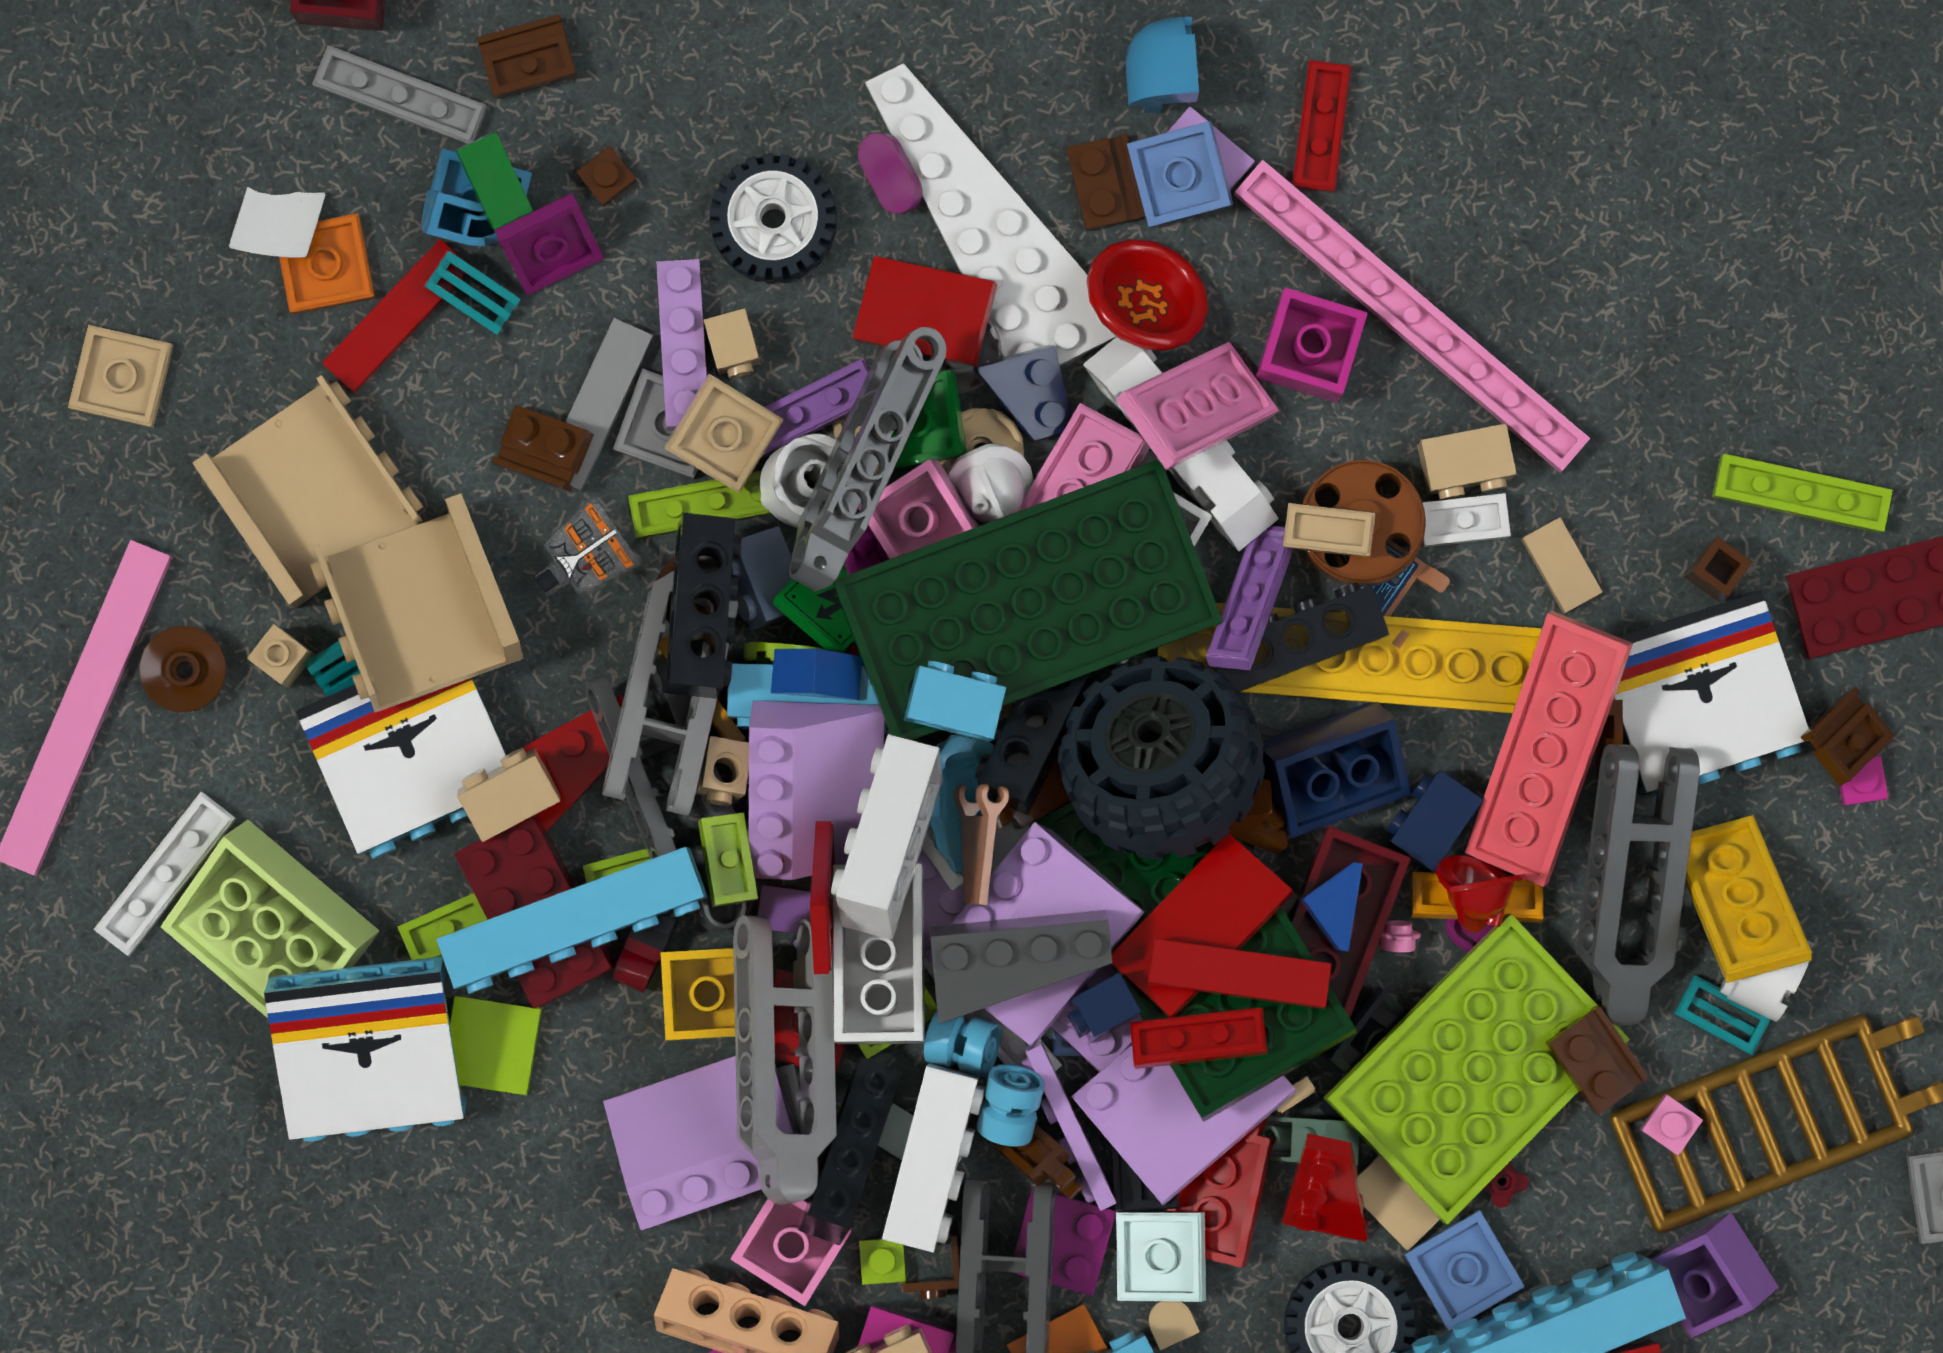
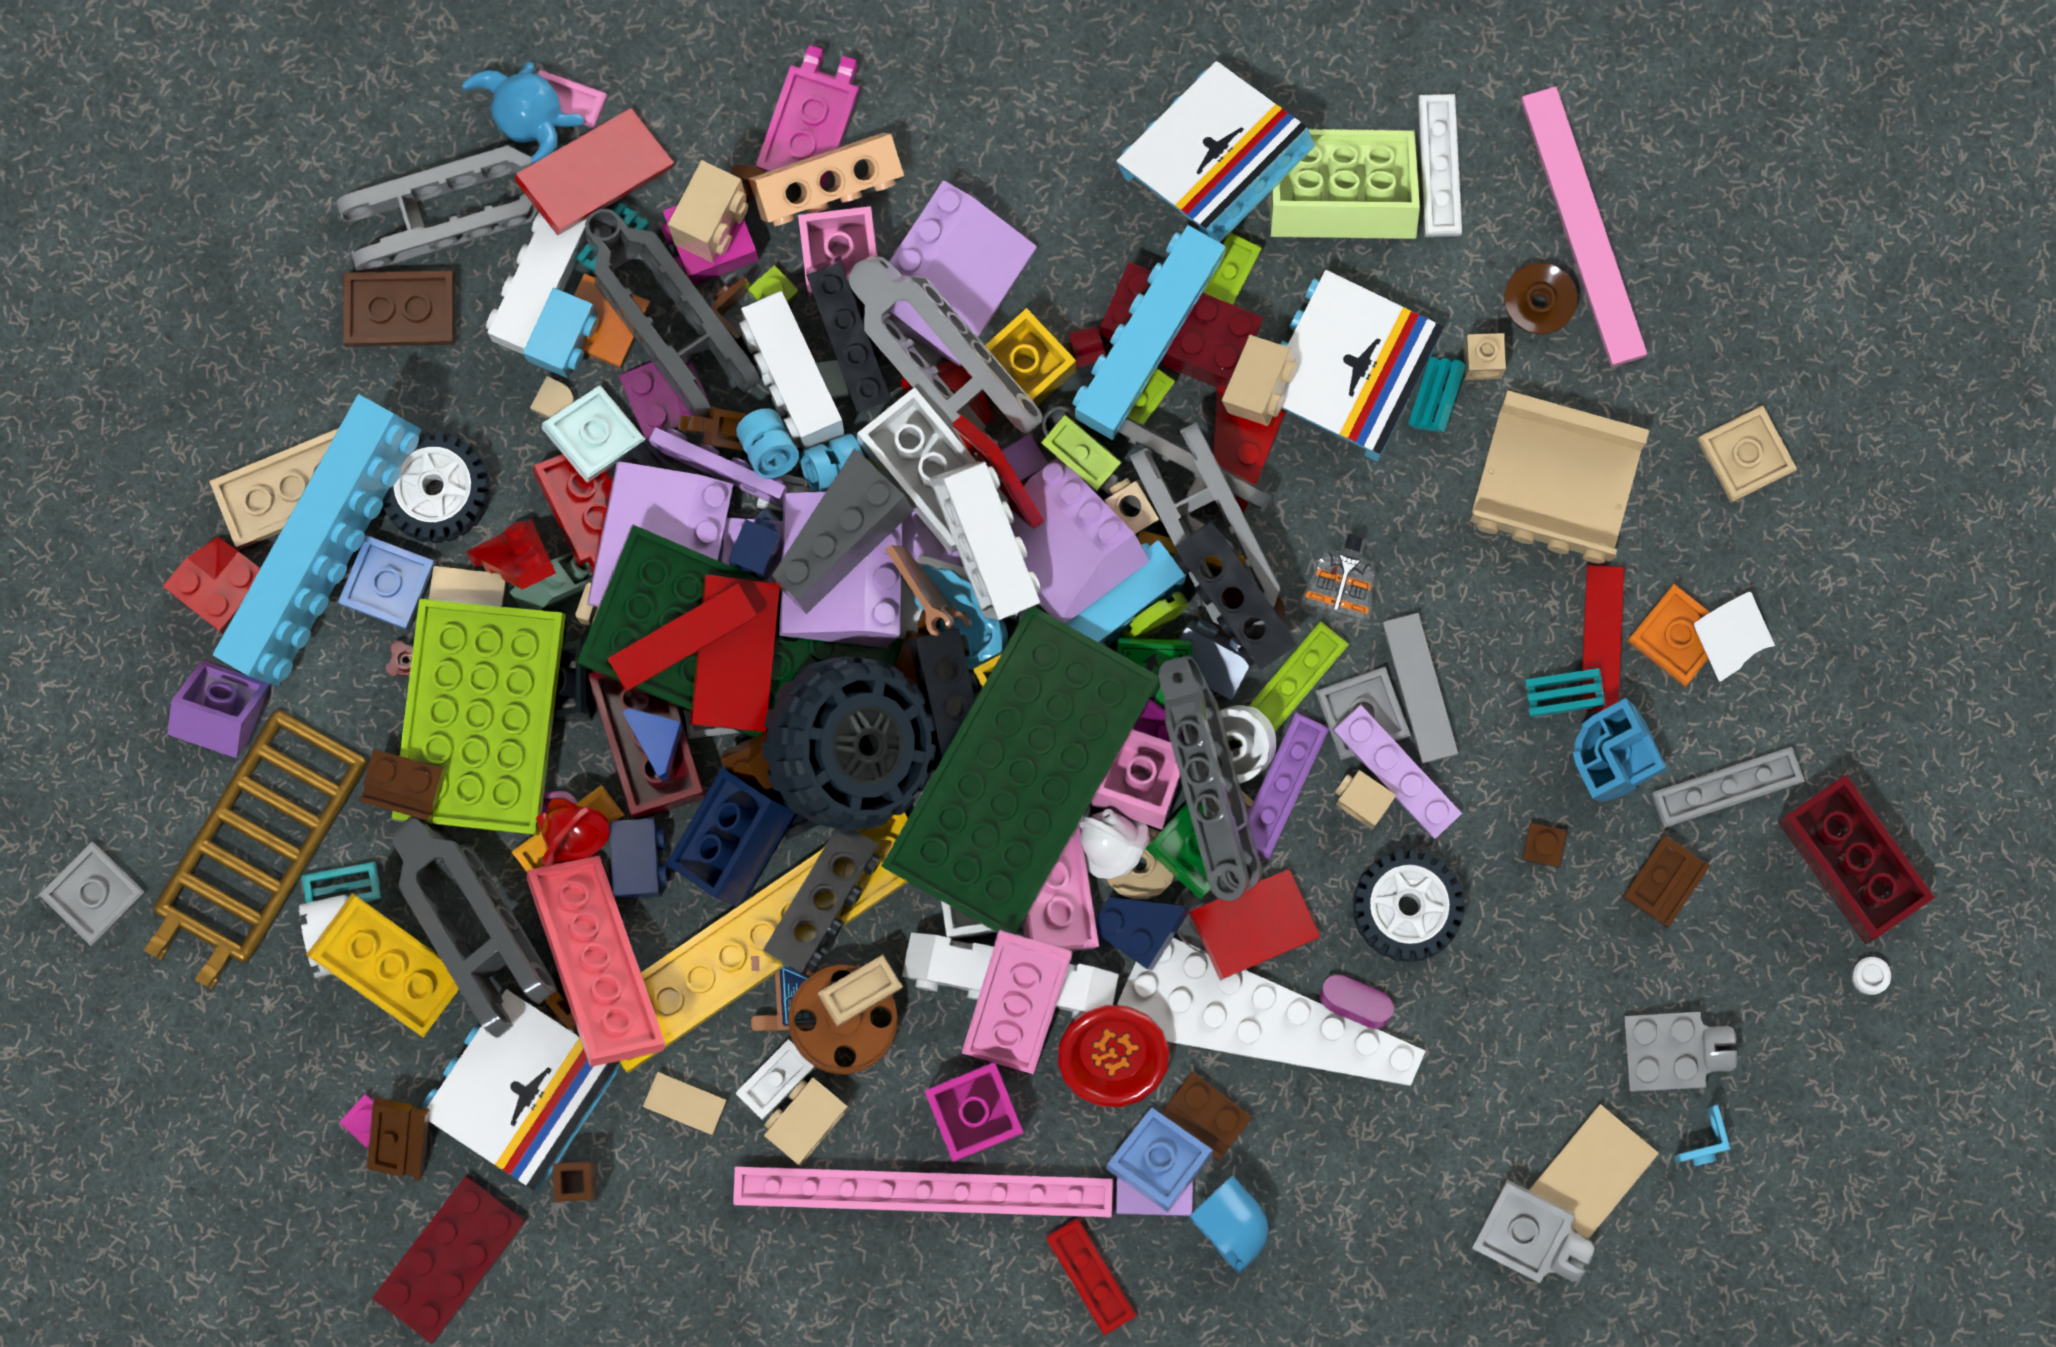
camera: 140 degrees right, 5 degrees down
(418, 609) = (1422, 453): tan panel -> none
(494, 180) = (1612, 768): green tile -> none
(494, 1044) = (1136, 225): lime tile -> none
(543, 448) = (1430, 628): reddish brown plate -> none
(549, 244) = (1541, 762): magenta plate -> none
(723, 433) = (1318, 730): tan tile -> none
(816, 673) = (1121, 611): blue slope -> none
(955, 701) = (1013, 660): medium azure brick -> none
(1198, 1038) = (676, 576): red tile -> none
(1250, 601) = (874, 898): medium lavender tile -> none
(1399, 936) = (599, 764): bright pink plate -> none
(1671, 1124) = (320, 784): bright pink plate -> none
(1802, 493) = (557, 1286): lime plate -> none

